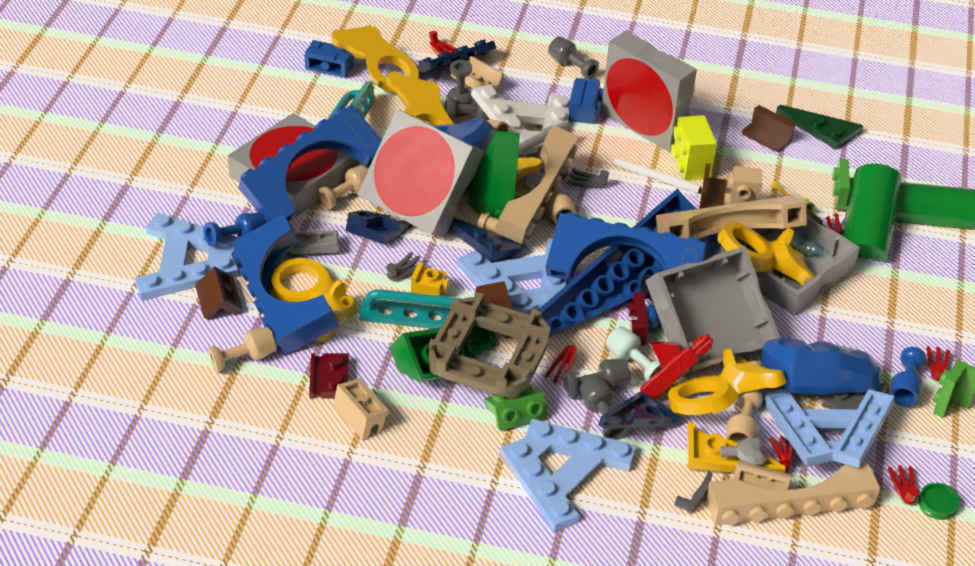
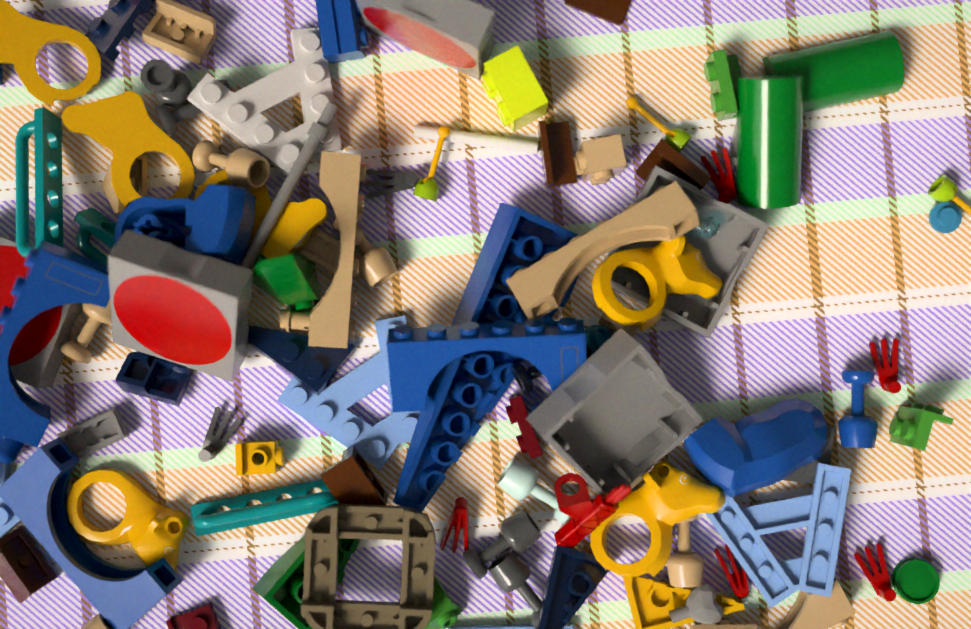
camera: 10 degrees left, 45 degrees up
(613, 185) = (428, 186): none -> hinge

